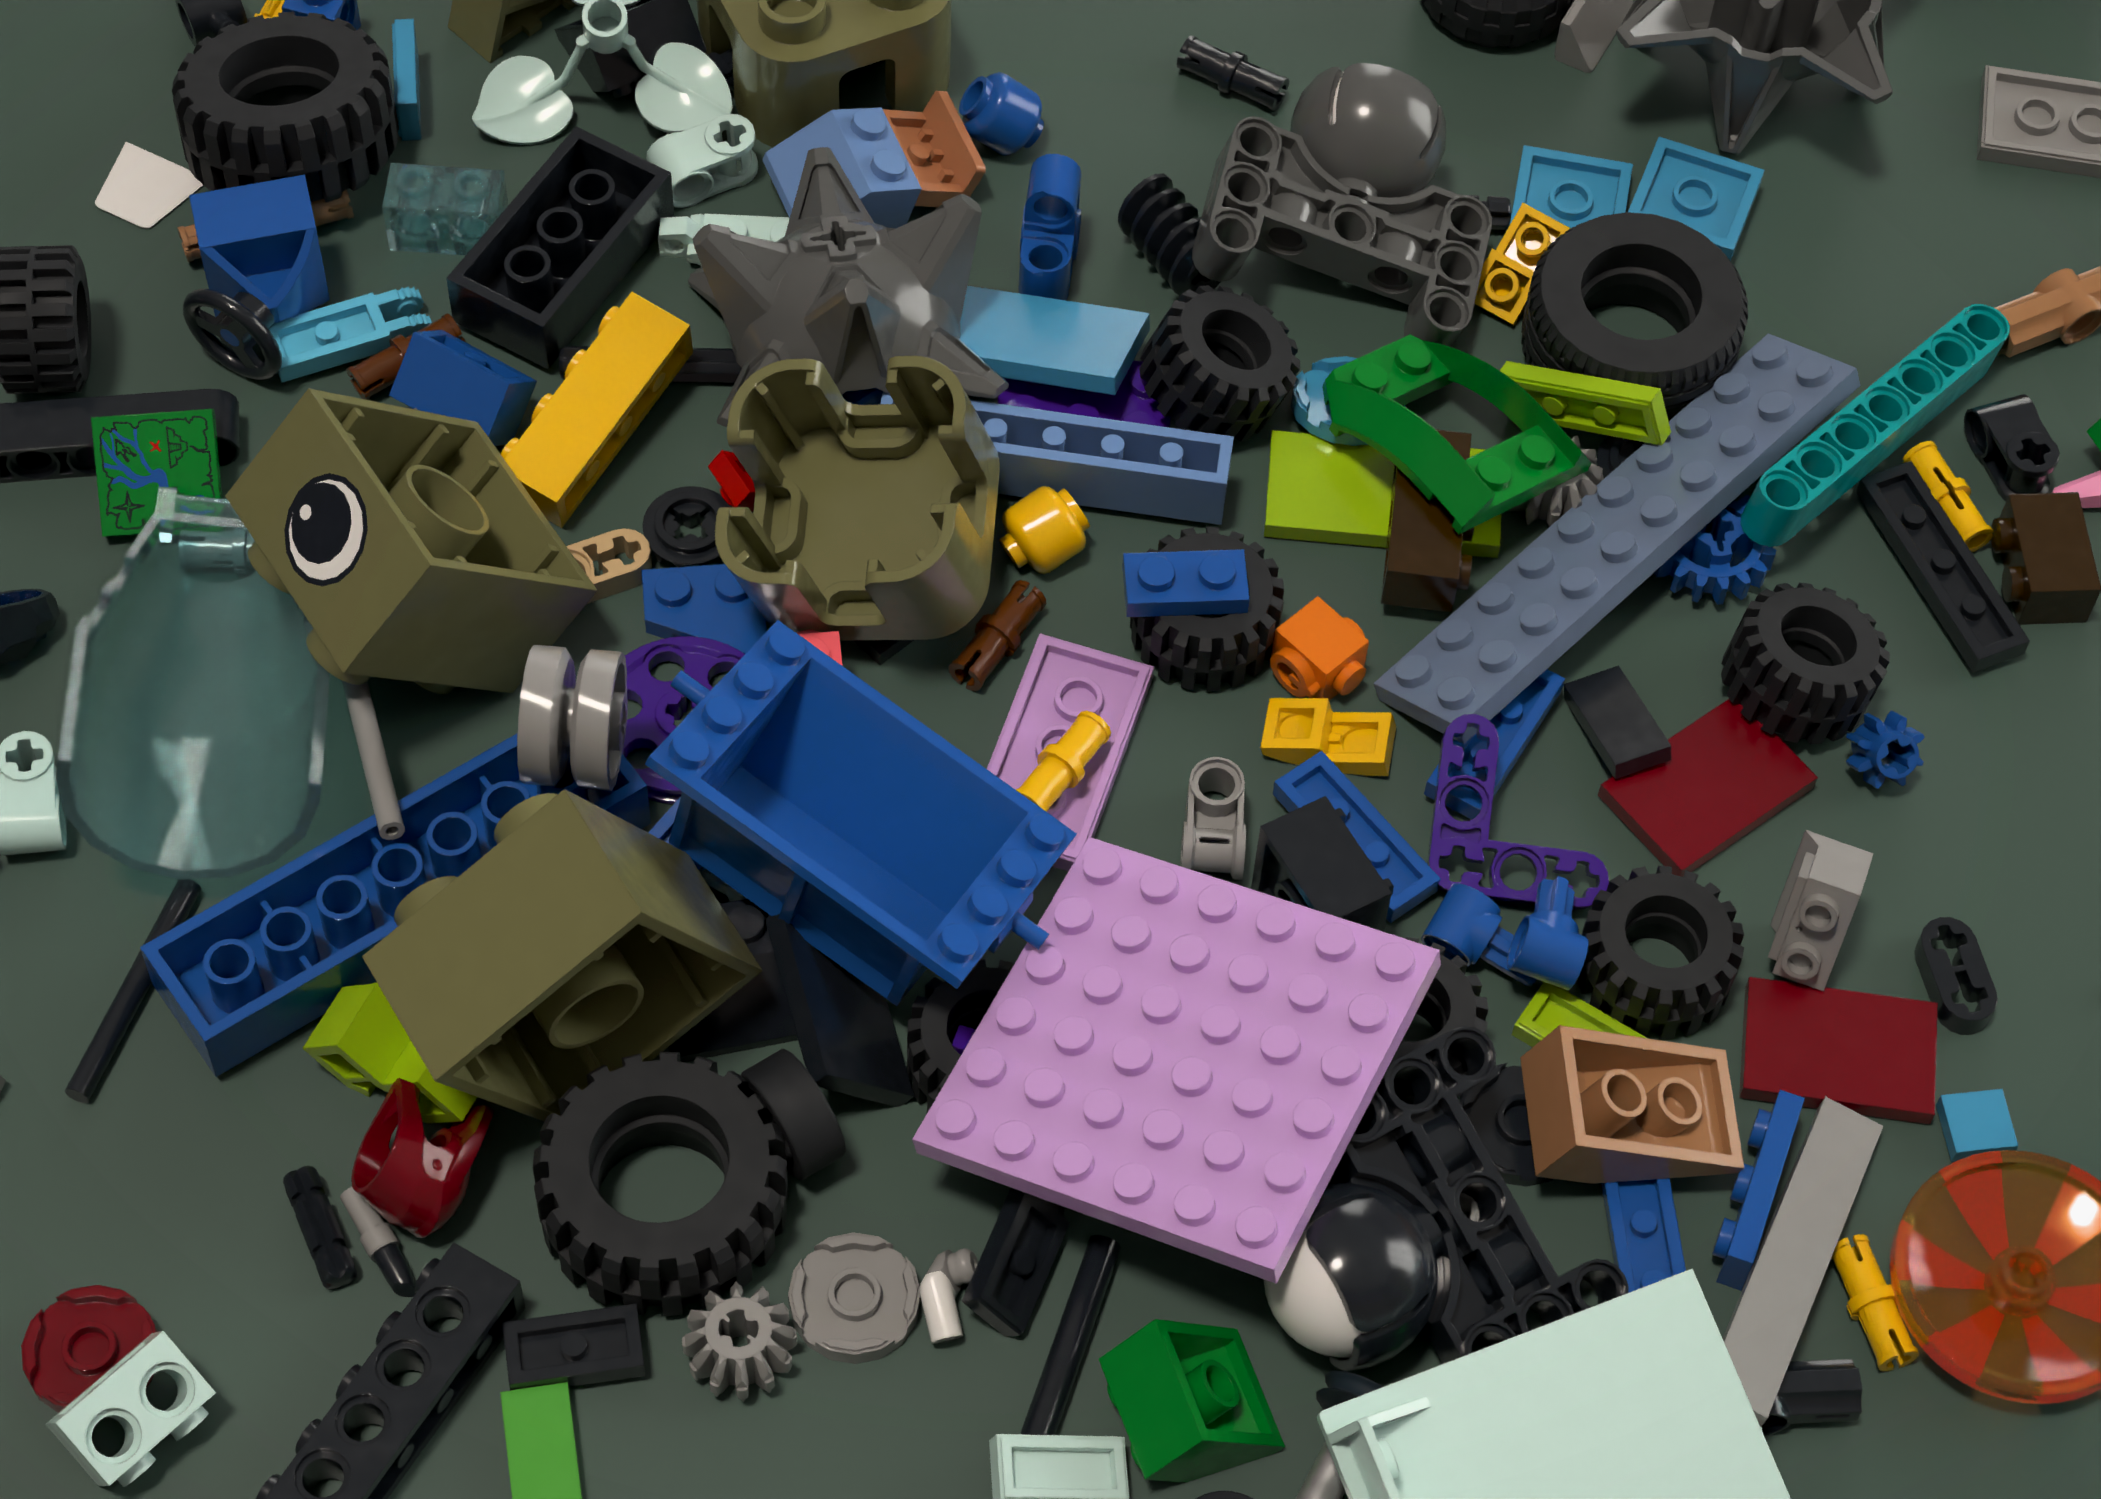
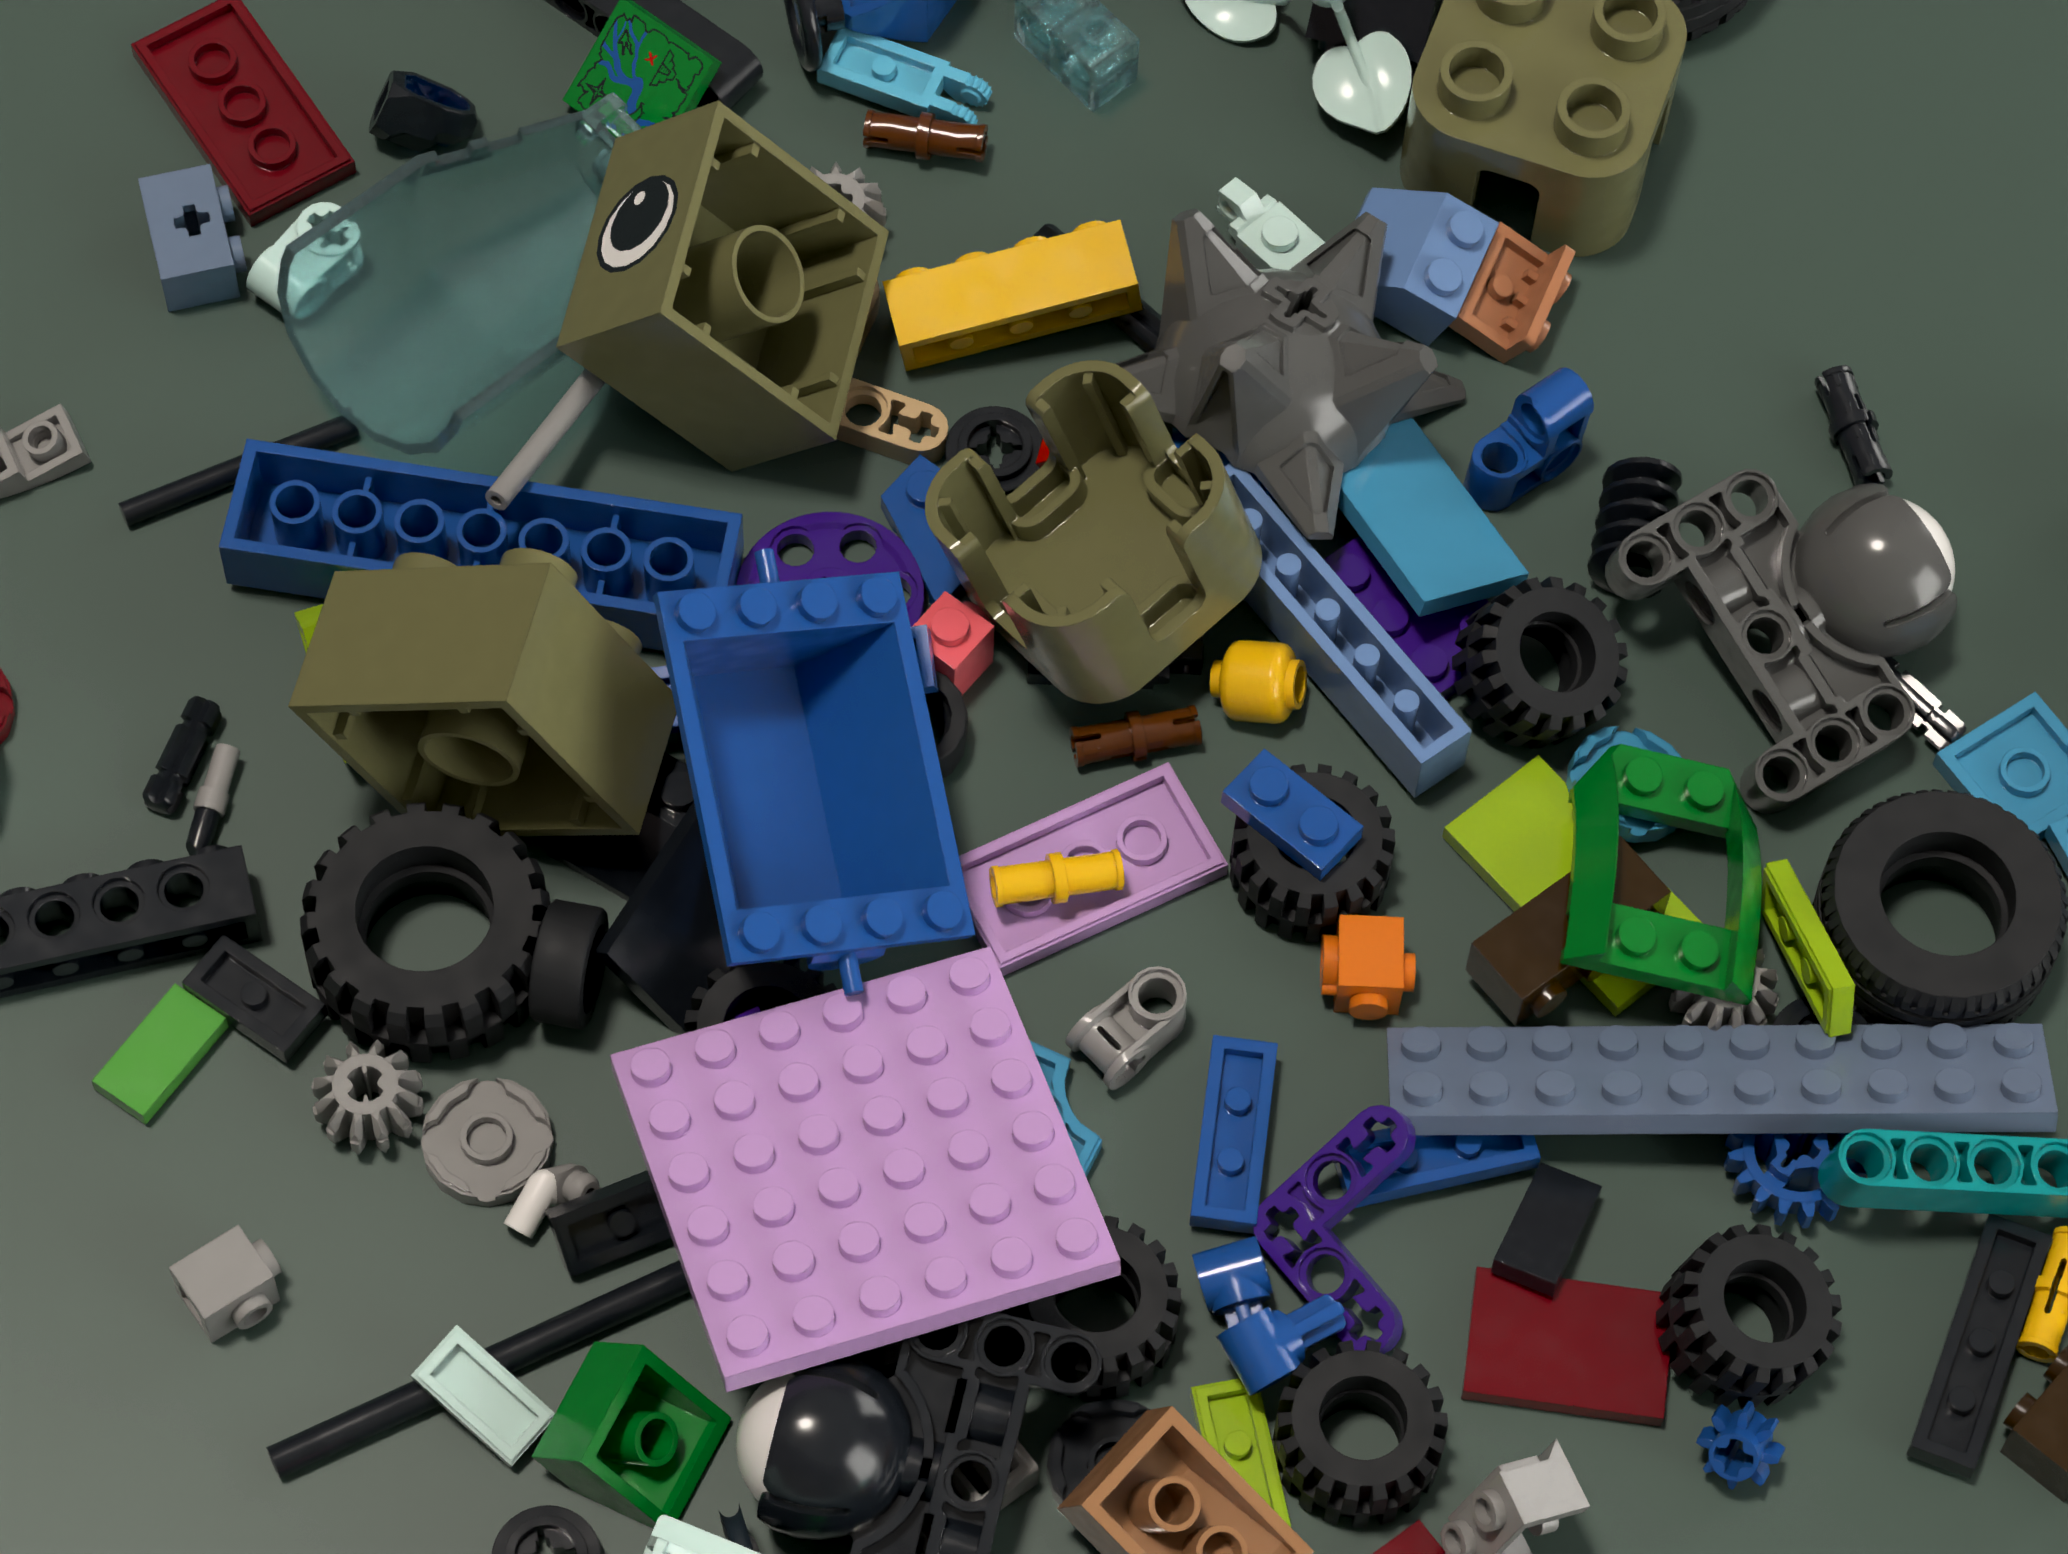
camera: 45 degrees right, 5 degrees up
(417, 1180) = (263, 782): dark red helmet -> none
(462, 382) = (931, 195): blue brick -> none
(560, 247) = (1128, 139): black brick -> none
(572, 717) = (693, 519): light grey wheel -> none
(705, 163) = (1320, 155): light aqua piece -> none
(1002, 113) = (1606, 307): blue head -> none
(1319, 865) = (1144, 1142): black container -> none
(1352, 740) = (1308, 1043): yellow slope -> none
(1510, 267) = (1938, 768): yellow slope -> none

